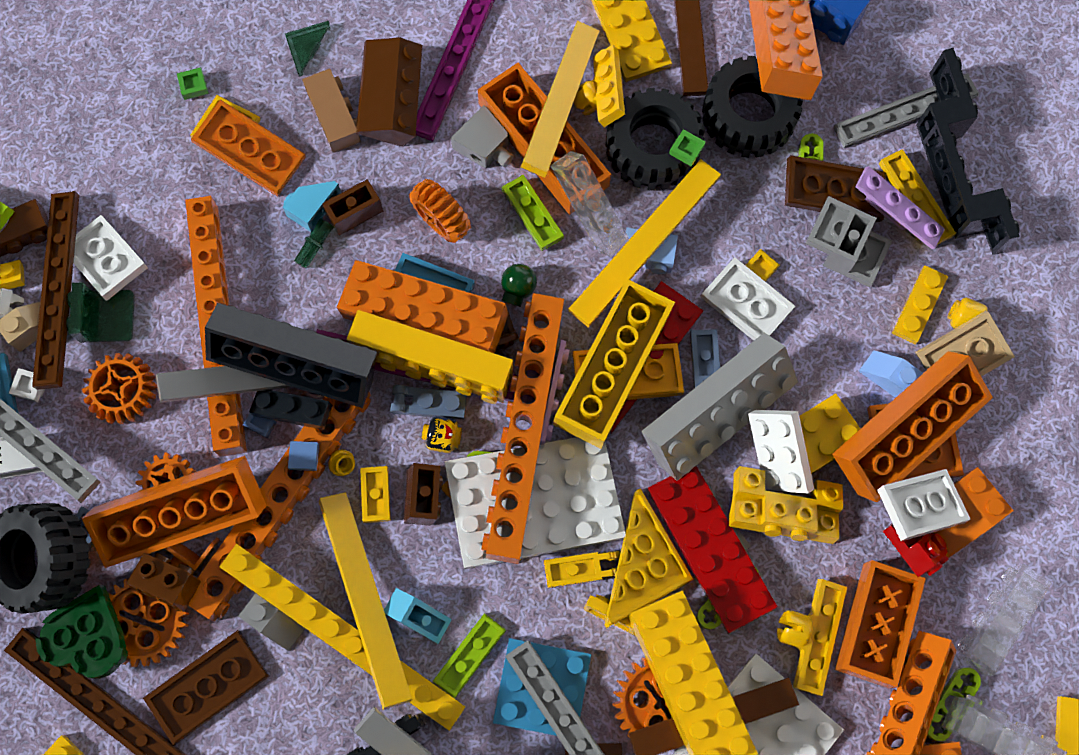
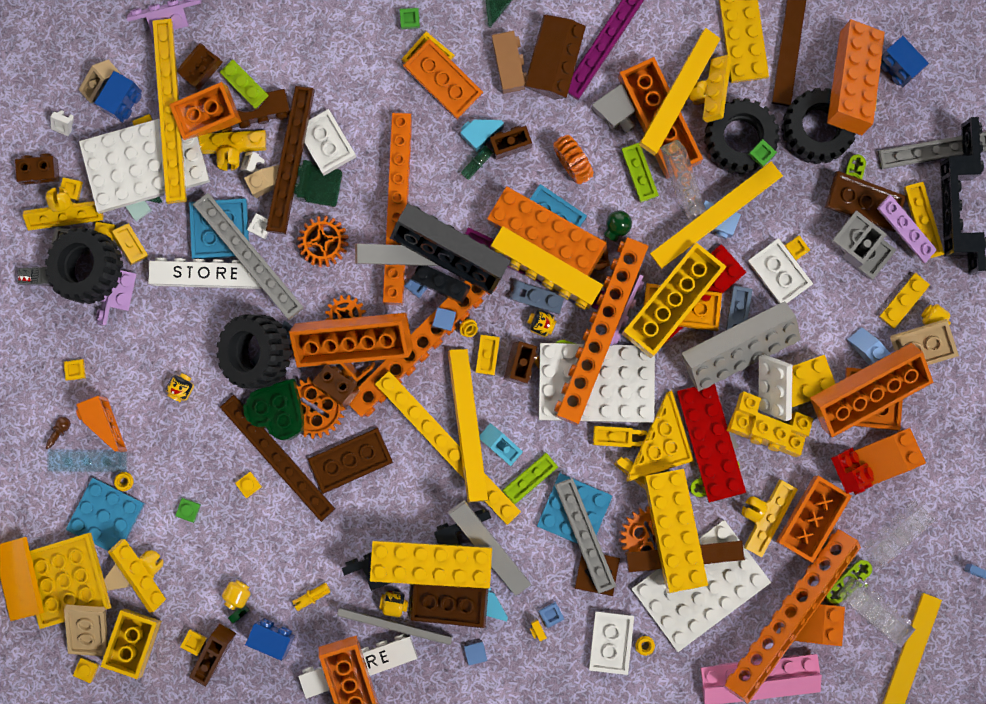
camera: 15 degrees right, 10 degrees up
(271, 622) = (402, 427): light grey slope -> none
(923, 504) = (863, 446): white plate -> none

